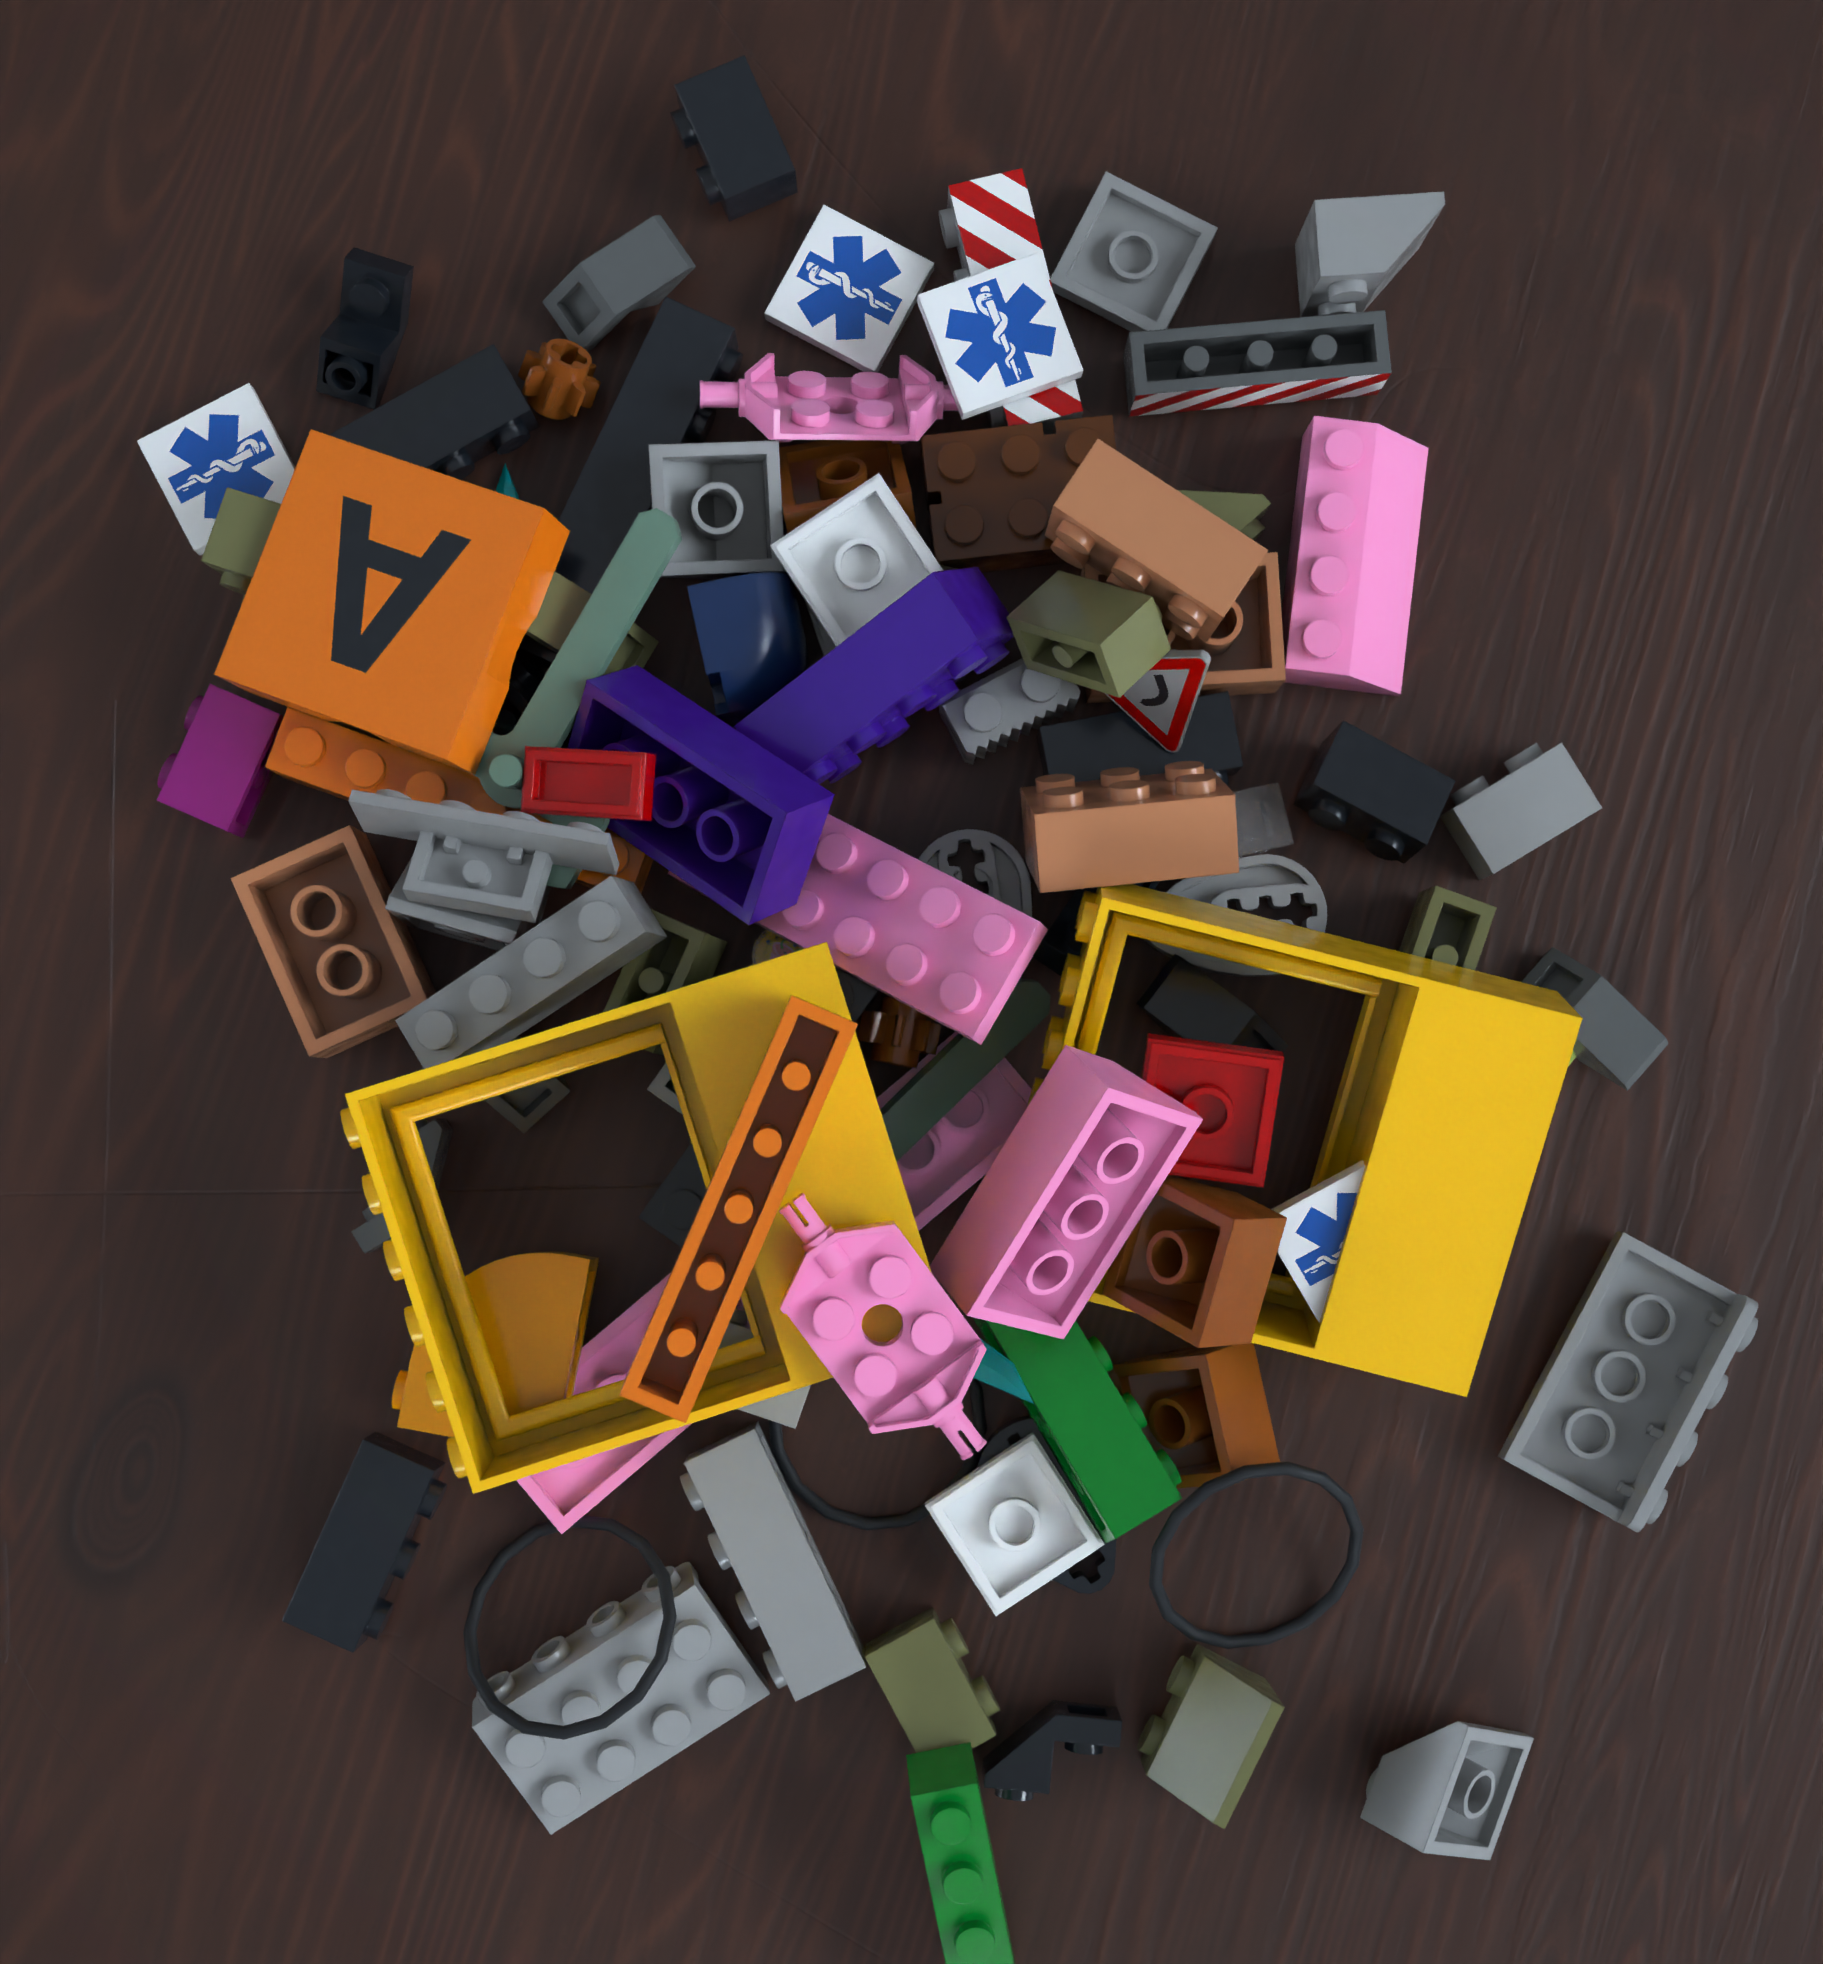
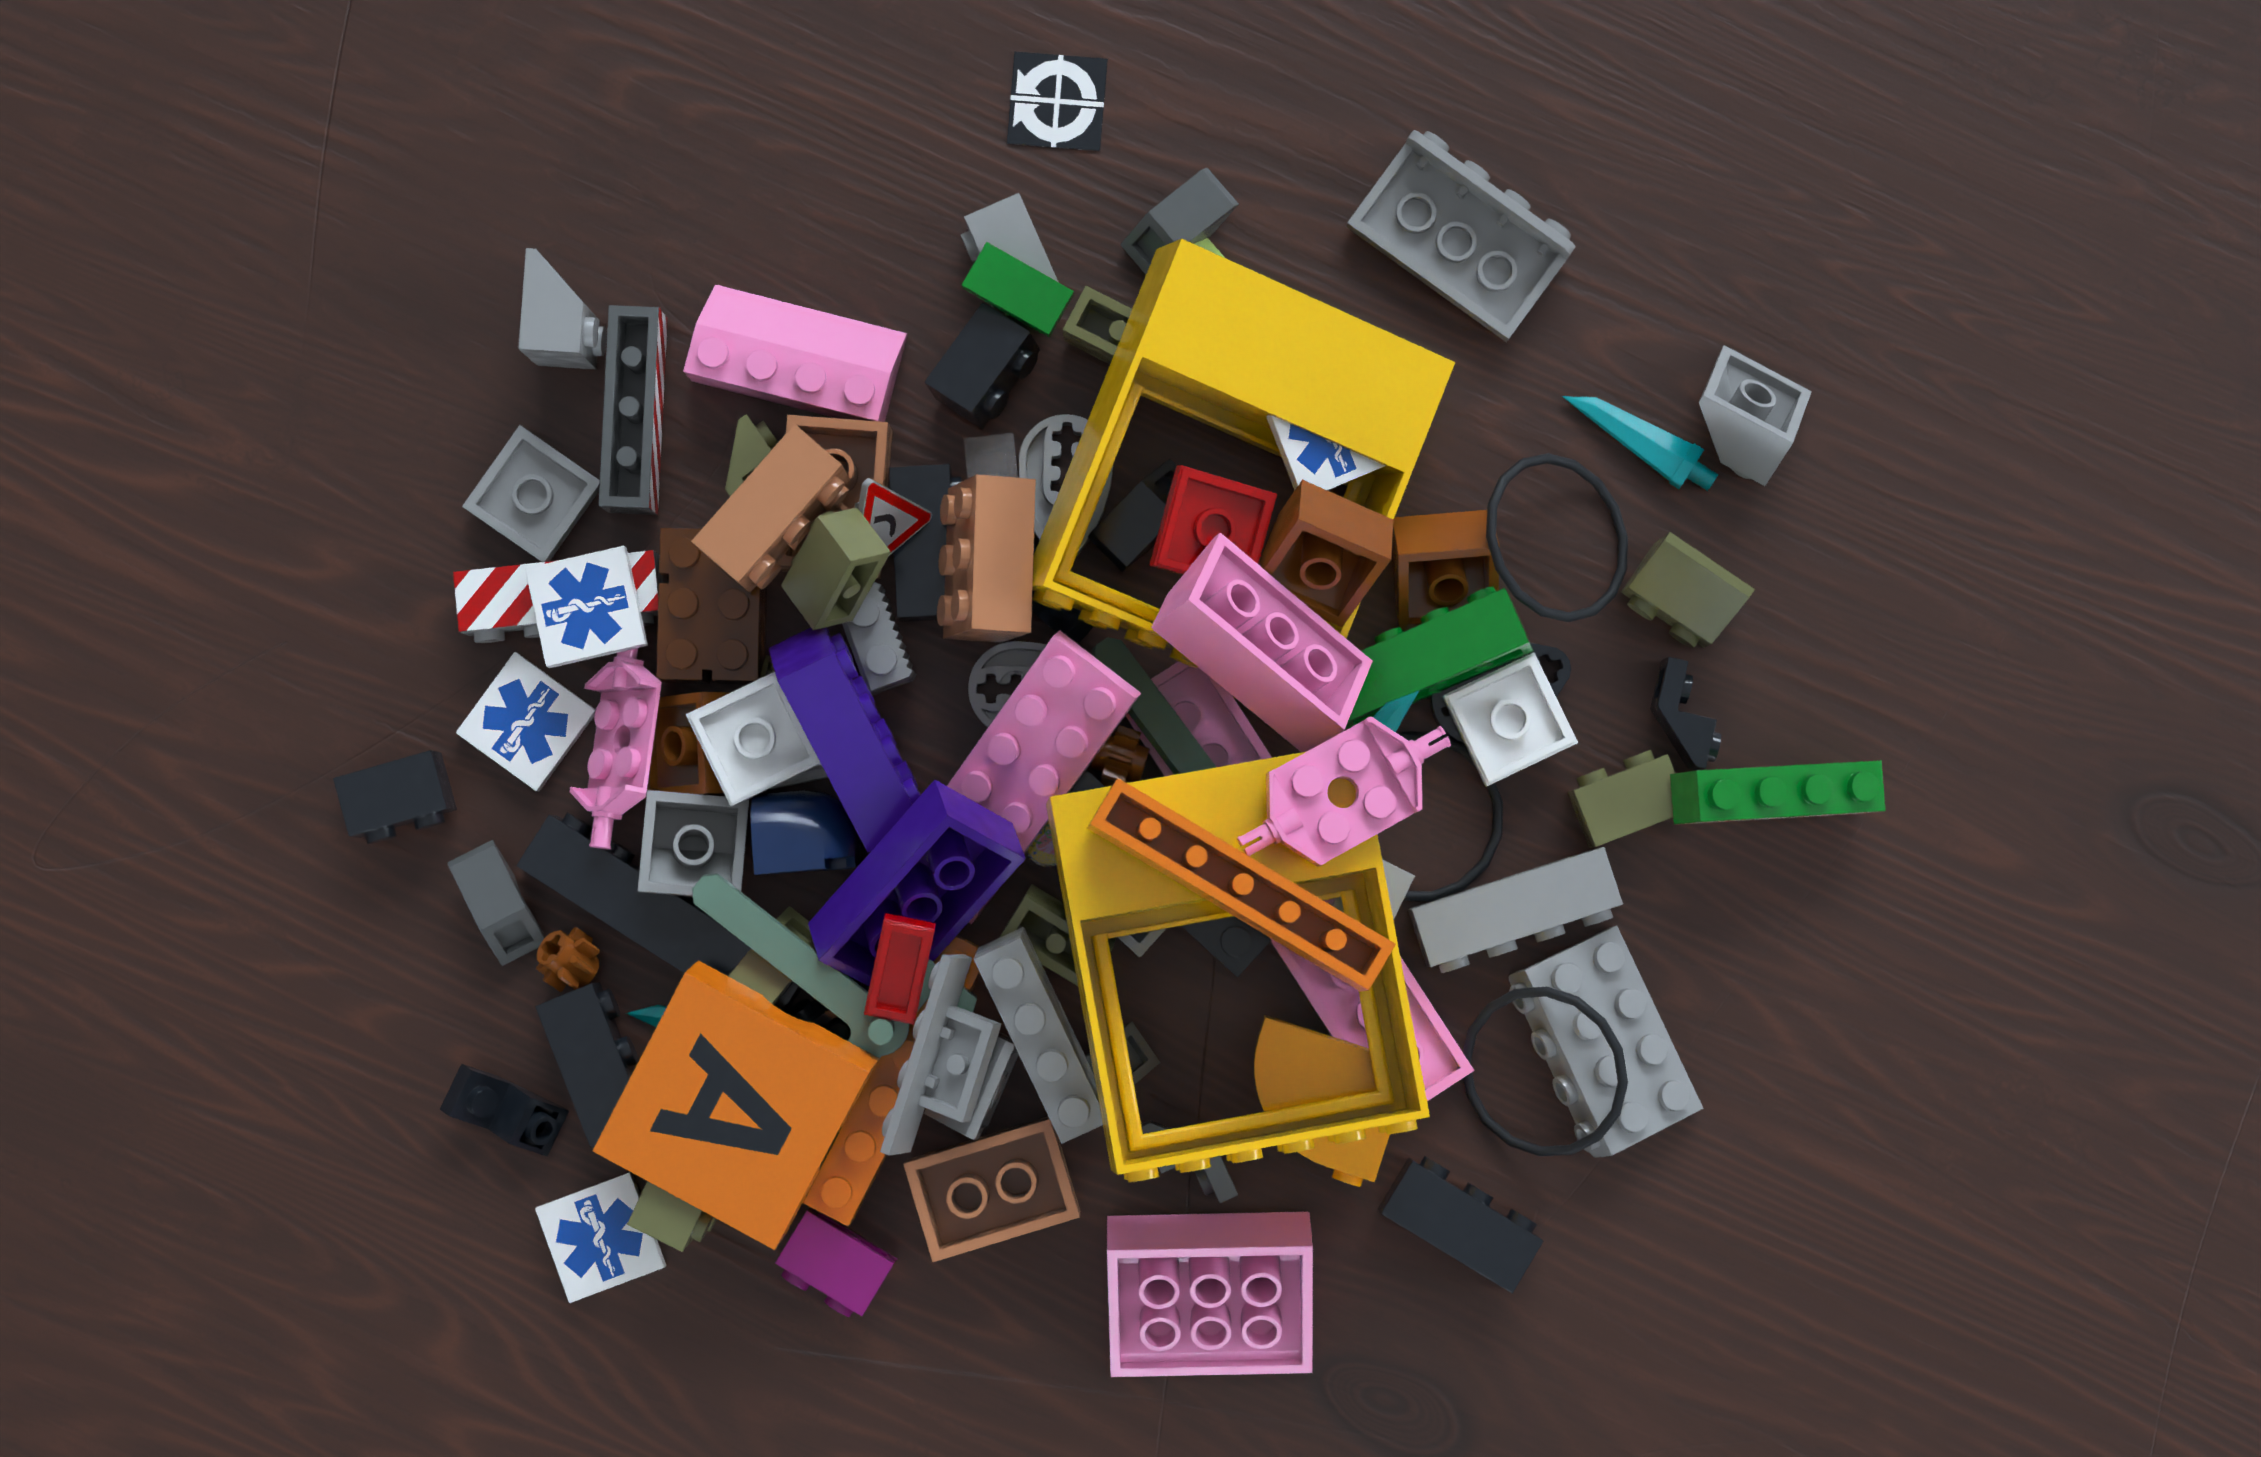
camera: 75 degrees left, 0 degrees up
(241, 1234) = (1210, 1294): none -> bright pink slope
(1387, 1672) = (1659, 449): none -> teal bar
(1478, 822) = (1017, 289): none -> green tile
(1722, 844) = (1057, 101): none -> sticker

